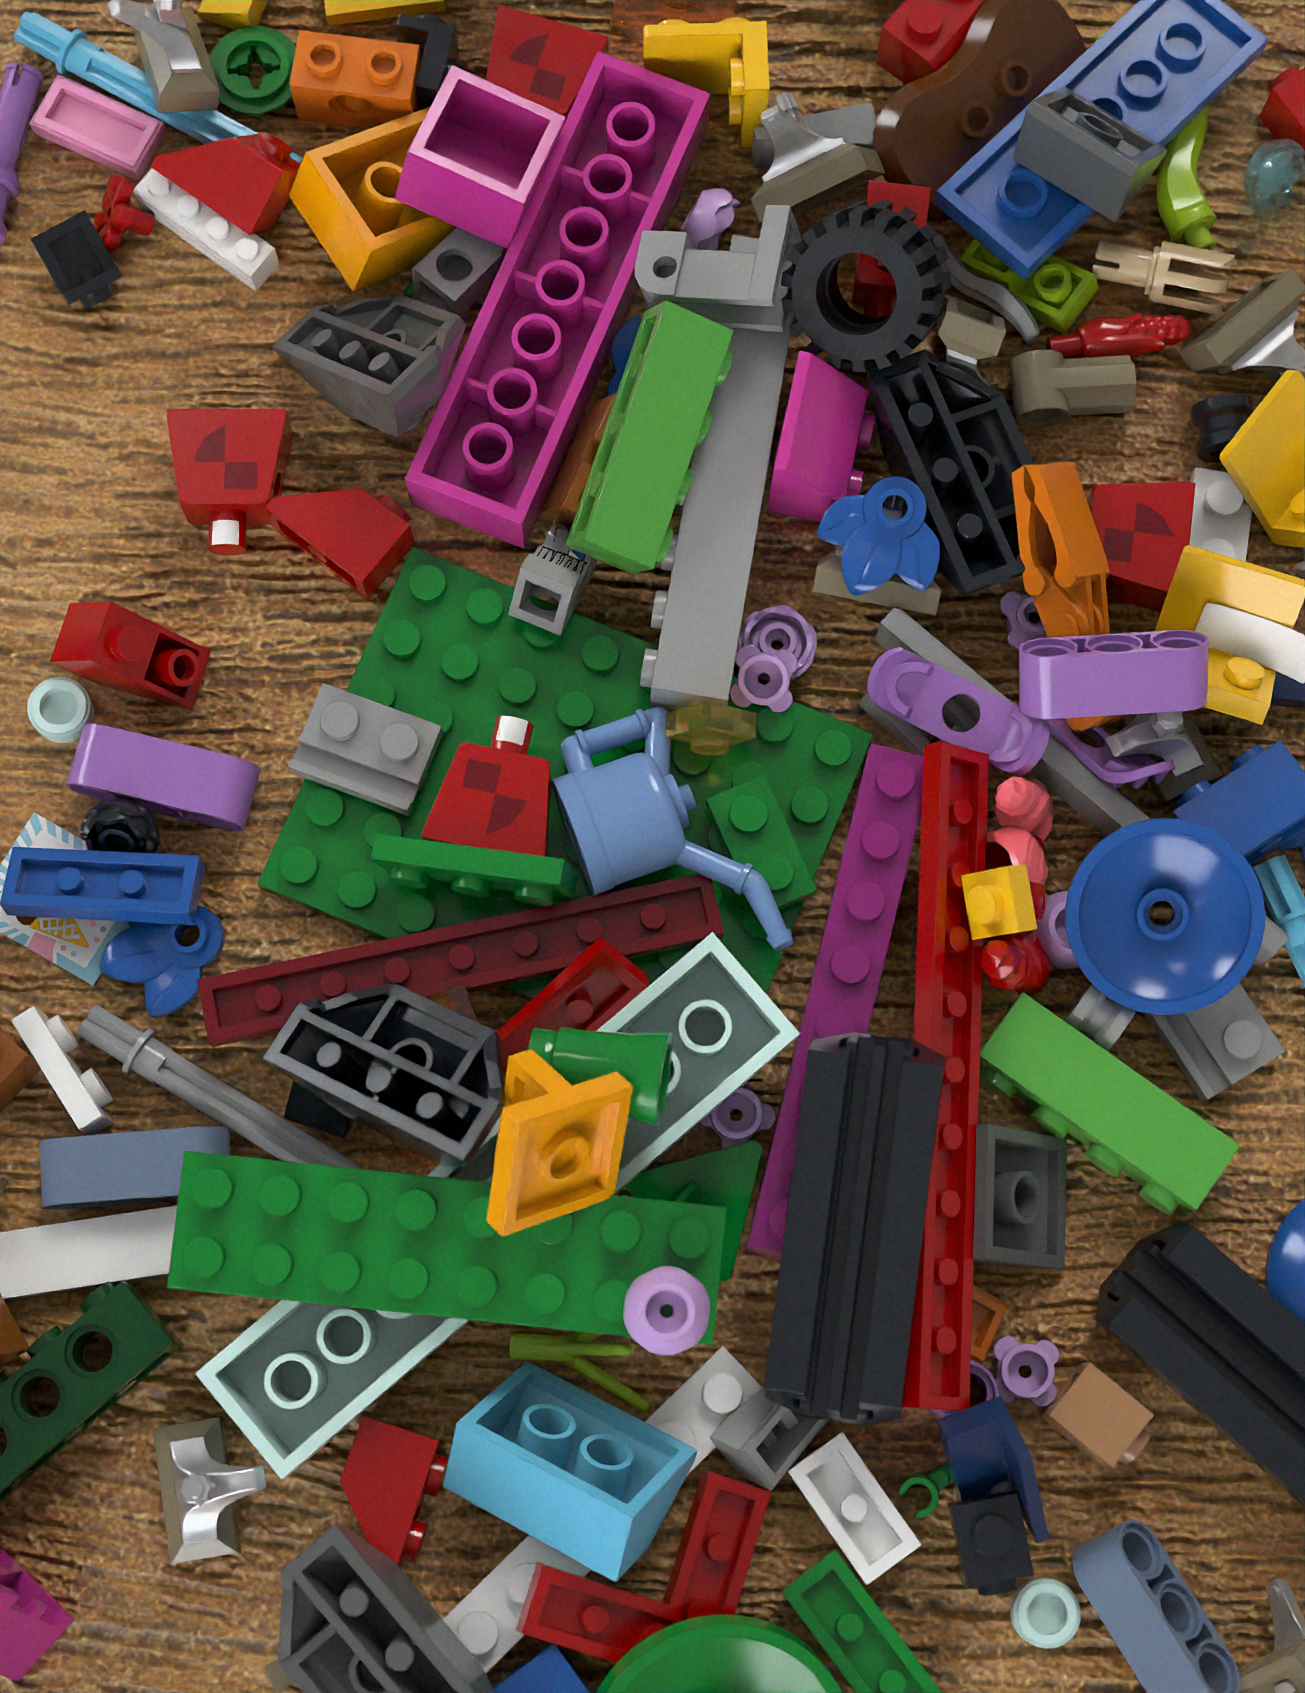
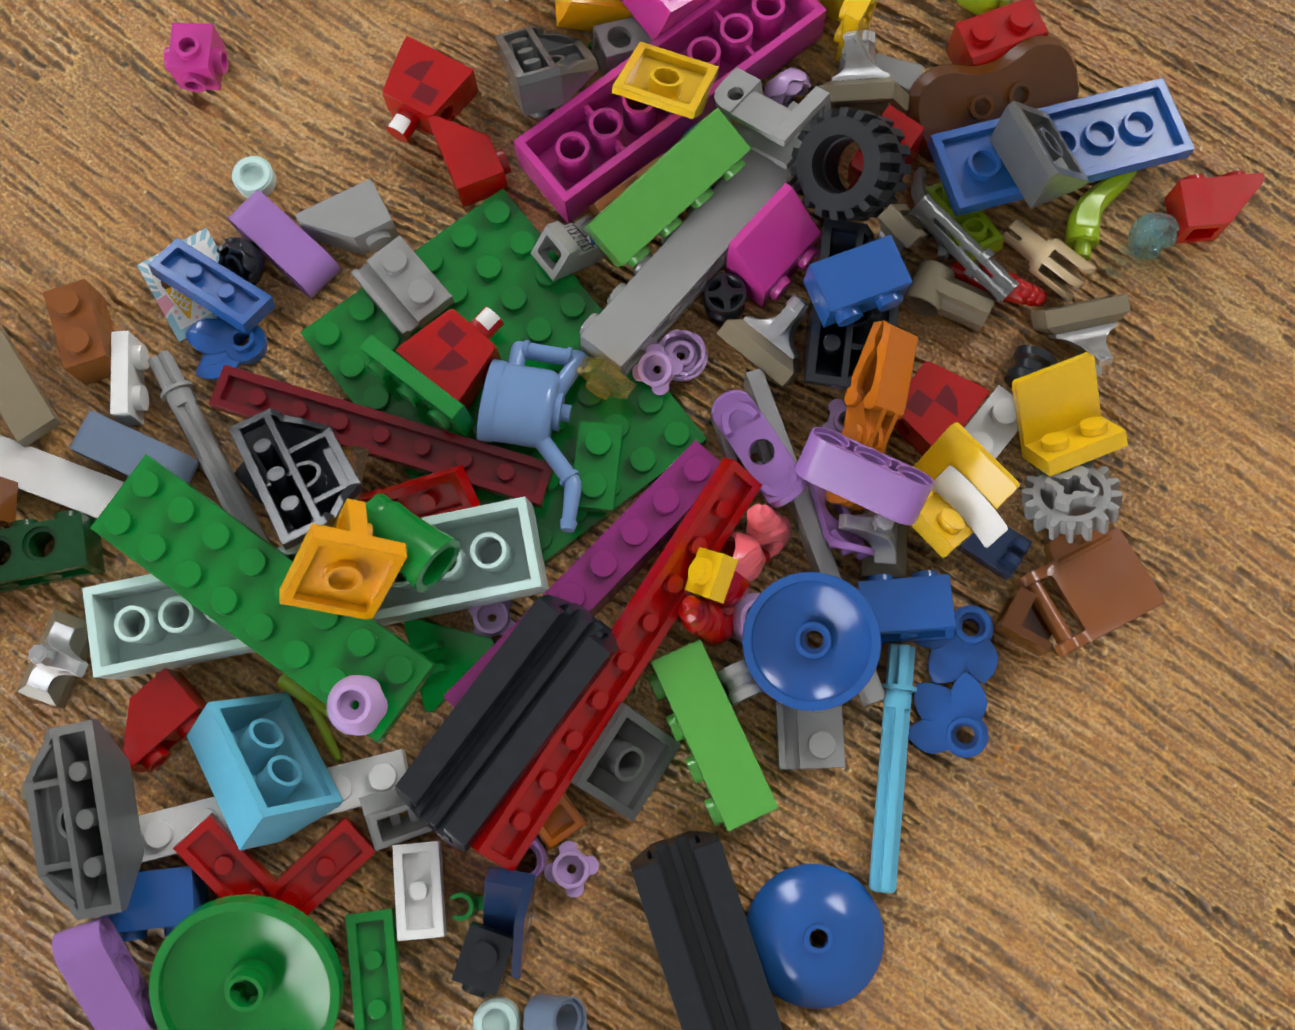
camera: 35 degrees right, 0 degrees up
(130, 653) = (305, 161): red slope -> none
(239, 696) = (350, 220): none -> light grey slope
(565, 295) = (666, 80): none -> yellow slope
(789, 526) = (726, 288): none -> black wheel
(882, 546) = (770, 326): blue plate -> none
(963, 432) = (857, 282): none -> blue brick
(1099, 1417) = (597, 923): medium nougat brick -> none
(1130, 337) = (926, 213): none -> dark grey pin

